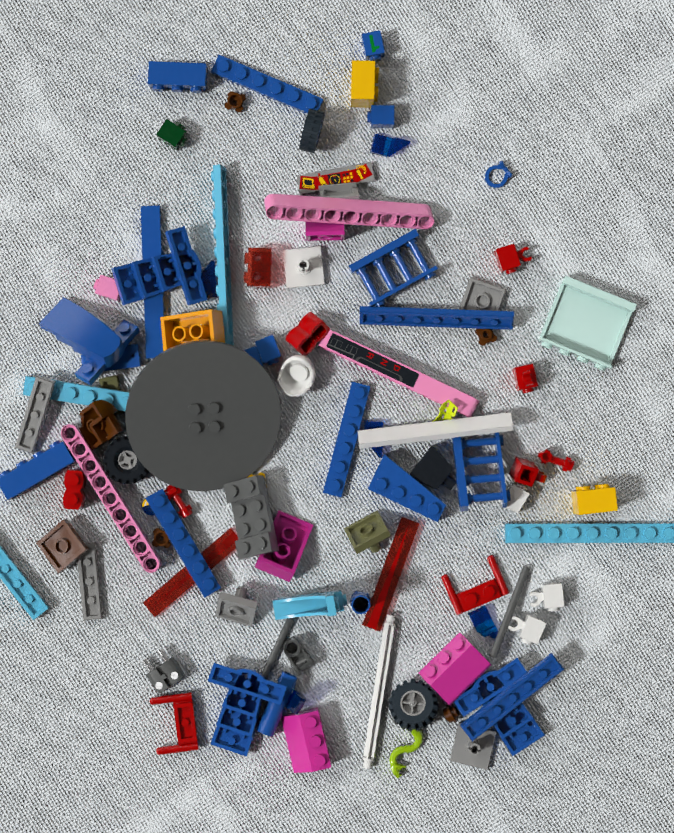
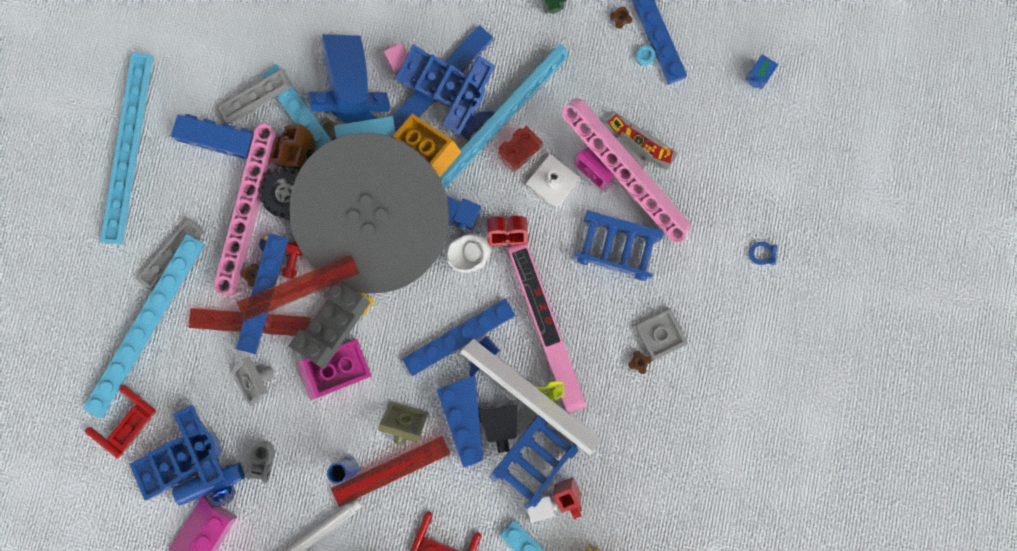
camera: 45 degrees right, 5 degrees down
(62, 546) = (175, 209): reddish brown plate -> none
(74, 495) = (223, 180): red brick -> none
(123, 645) = (144, 326): none -> medium azure plate
(139, 359) = (379, 126): none -> medium azure tile
(165, 674) = (152, 377): dark grey piece -> none
(205, 514) = (297, 288): none -> clear red tile
(277, 647) = (252, 441): dark grey piece -> none
(279, 112) = (645, 55): none -> medium azure tile
(310, 605) = (306, 434): medium azure arch -> none
(311, 130) = (656, 87): black wheel -> none
(363, 81) = (728, 90): yellow brick -> none
(381, 116) = (718, 128): blue brick -> none
(387, 146) = (701, 154): clear blue slope -> none
(436, 317) = (615, 313): blue tile -> none
(509, 259) = (713, 322): red brick -> none
(525, 378) = (637, 424): red brick -> none
(566, 464) = (595, 500): red bar -> none
(586, 323) = (725, 429): light aqua panel -> none

